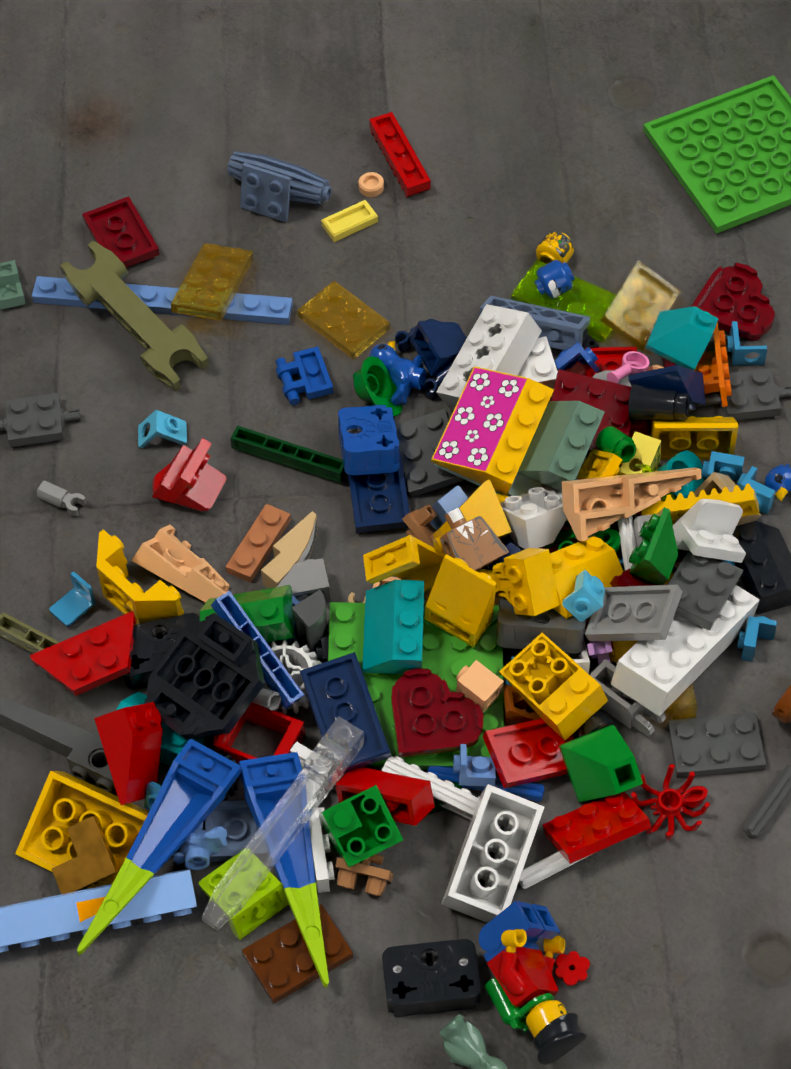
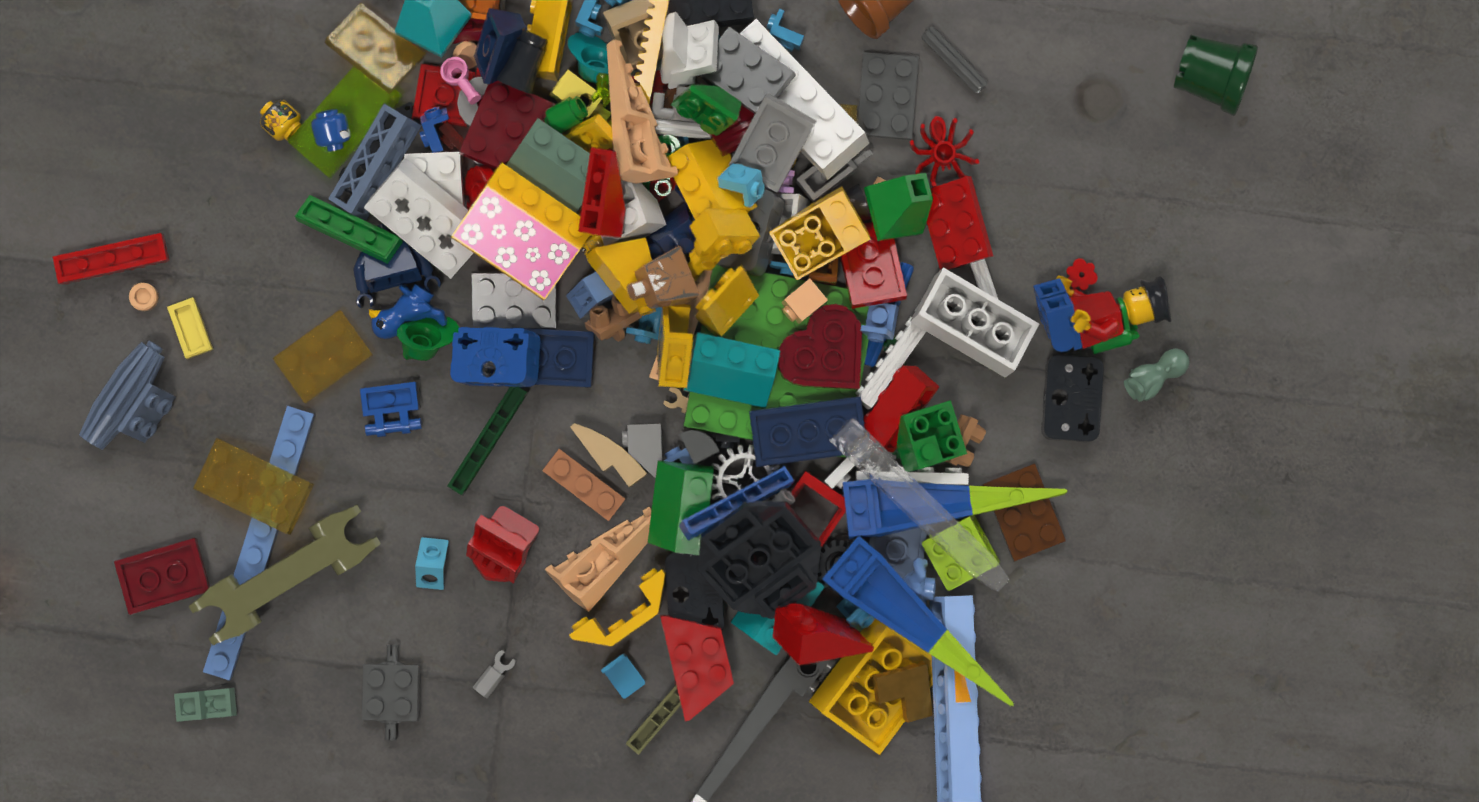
camera: 80 degrees left, 30 degrees up
(465, 310) = (348, 229): none -> green tile
(532, 477) = (603, 196): none -> red slope

